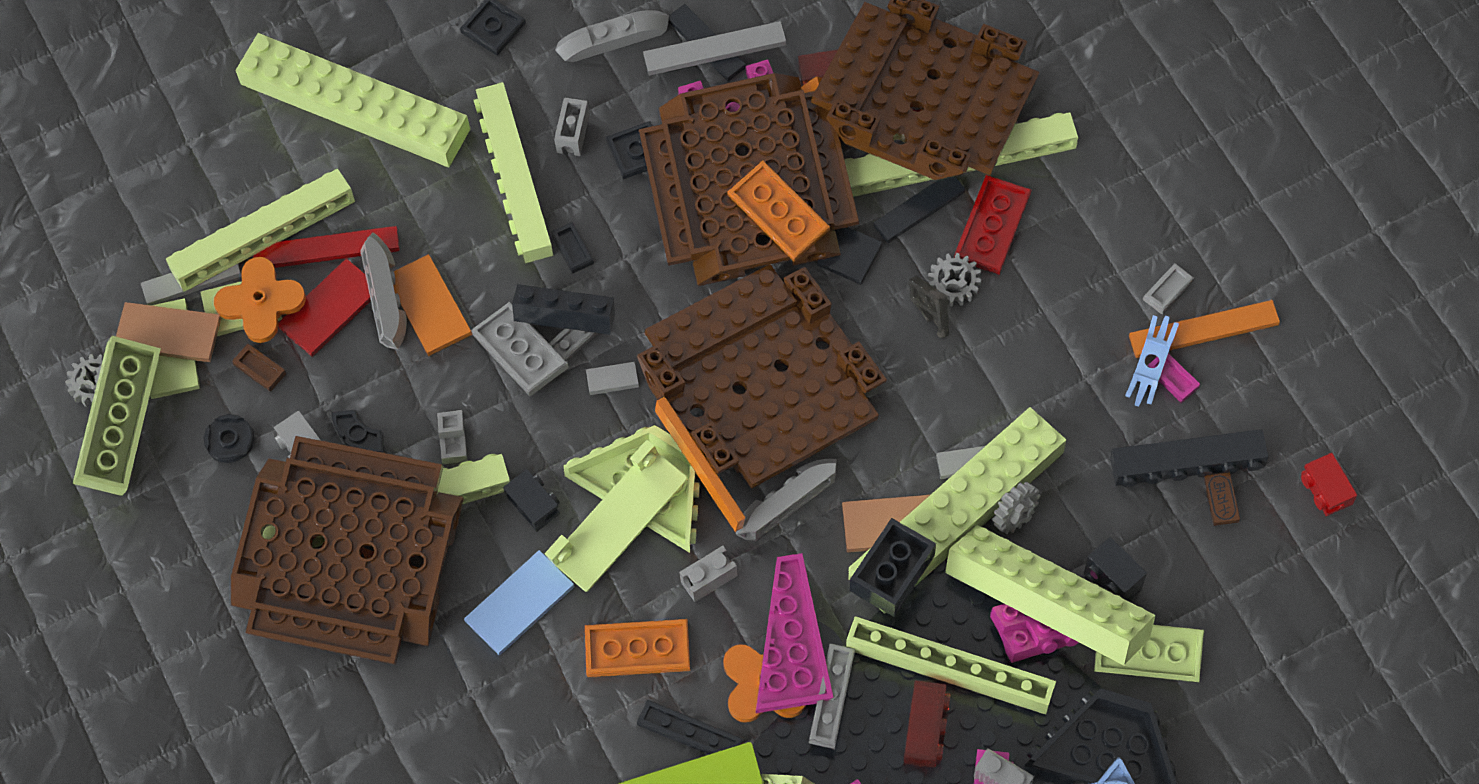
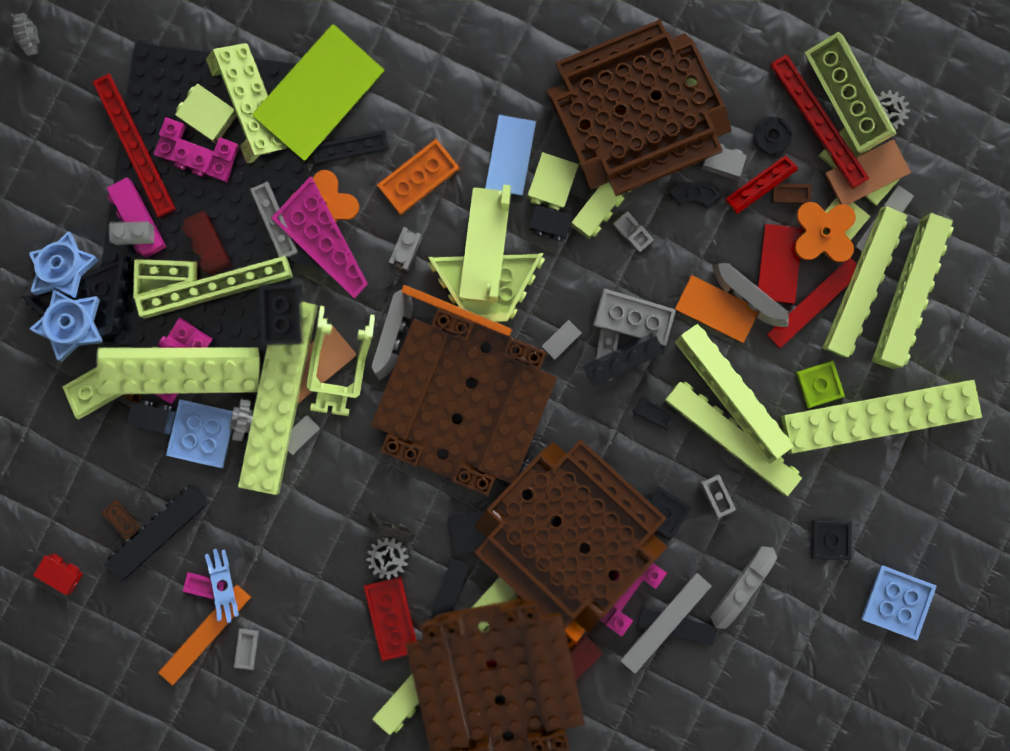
camera: 140 degrees right, 20 degrees up
(171, 416) = (819, 122): none -> red tile
(223, 188) = (912, 291): none -> yellowish green brick
(282, 394) = (761, 184): none -> red tile
(385, 169) = (820, 384): none -> lime tile
(478, 208) = (733, 393): none -> yellowish green brick
(496, 540) = (552, 182): none -> yellowish green brick
(778, 210) = (529, 519): orange tile -> none
(893, 472) = (333, 394): none -> yellowish green piece
(999, 718) = (159, 275): none -> yellowish green wedge
(1070, 527) = (200, 434): none -> light blue plate
(1155, 712) = (69, 324): none -> light blue plate

